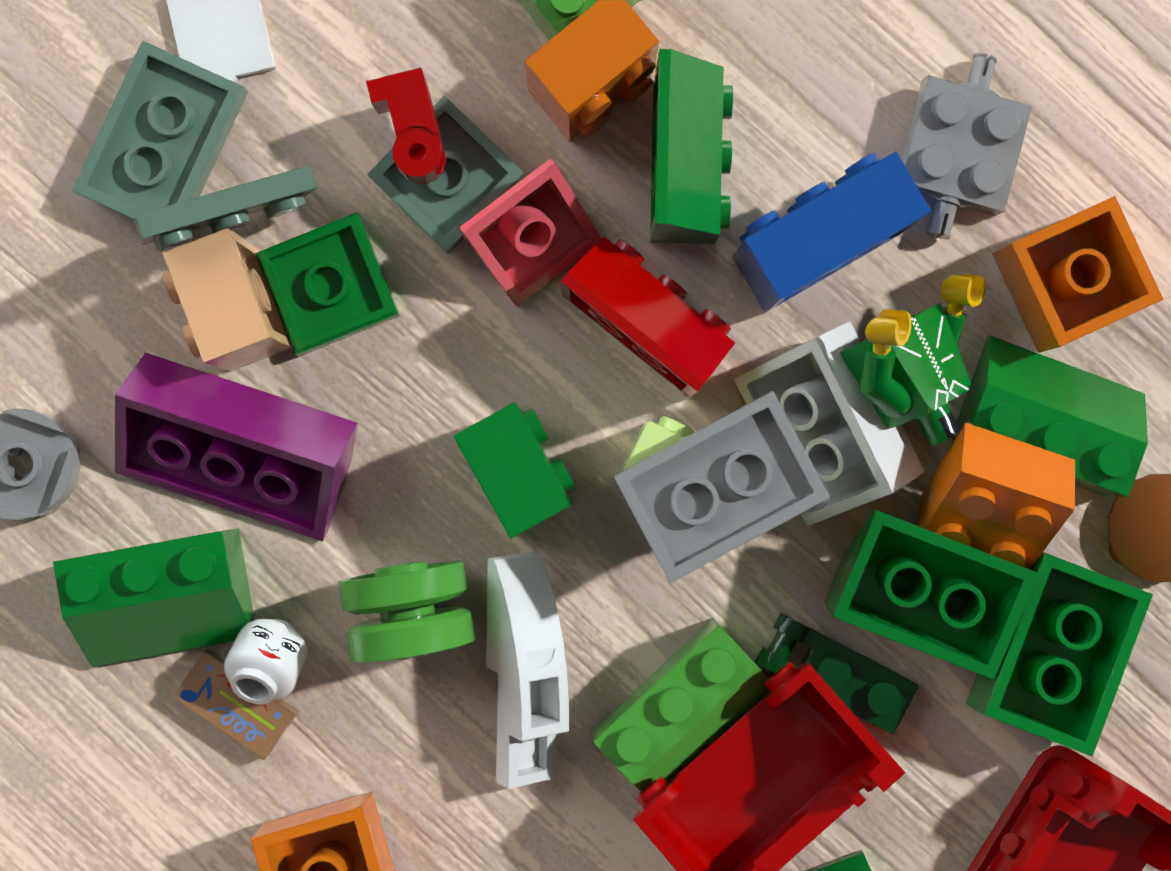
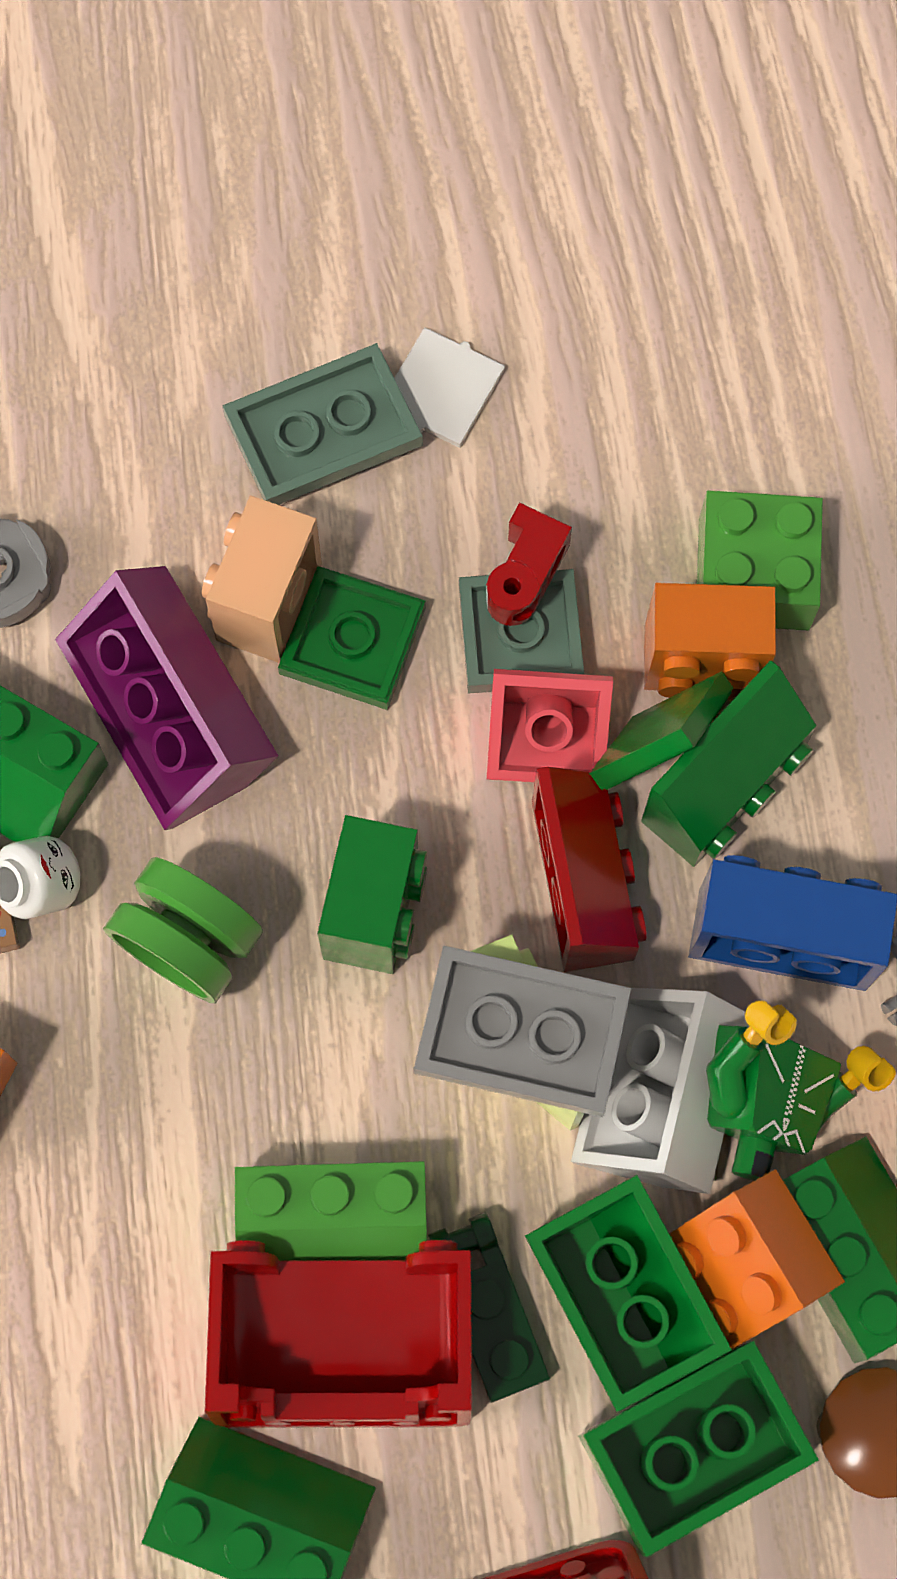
camera: 45 degrees right, 15 degrees down
(225, 209) = (371, 526): sand green plate -> none
(531, 667) = (235, 1071): white slope -> none
(621, 169) = (662, 731): none -> green tile

